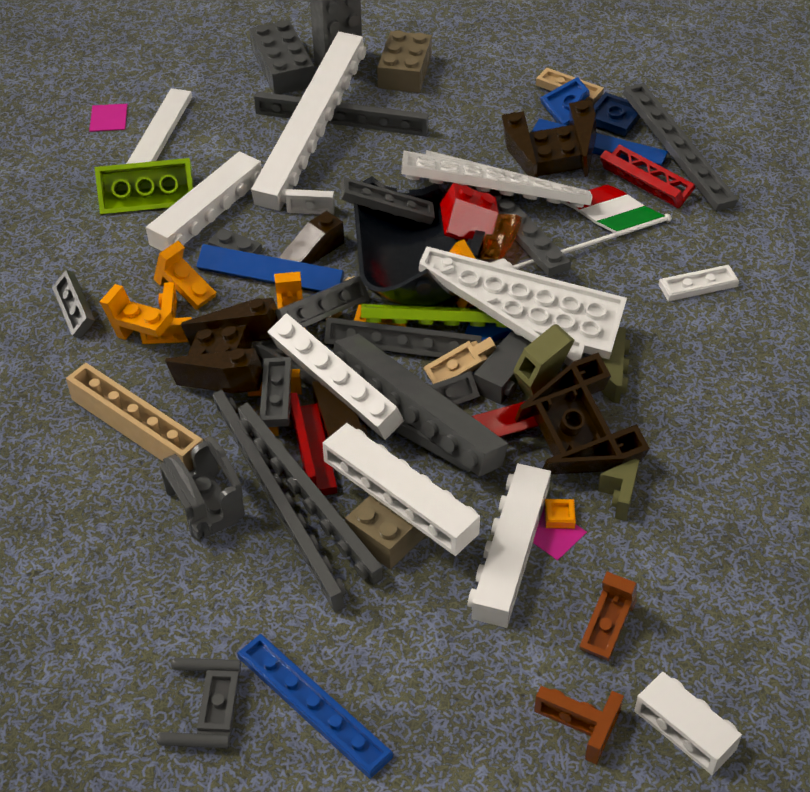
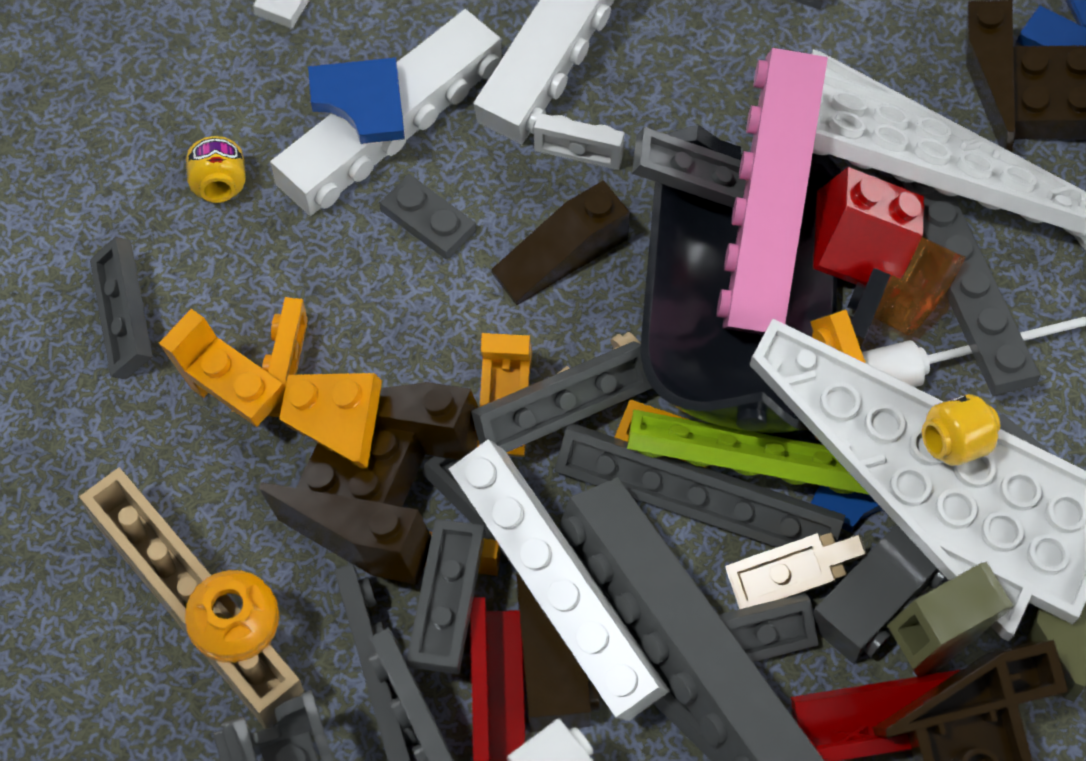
camera: 10 degrees right, 15 degrees up
(115, 237) = (215, 169): none -> yellow head
(143, 185) = (268, 52): lime slope -> none
(161, 421) = (239, 636): none -> light orange piece
(187, 281) = (324, 287): light orange bracket -> none
(191, 191) = (361, 94): none -> blue tile
(200, 320) = (334, 411): none -> light orange wing
(264, 267) = (483, 287): blue tile -> none
(417, 194) = (774, 190): none -> bright pink brick
(533, 275) = (961, 430): none -> yellow head

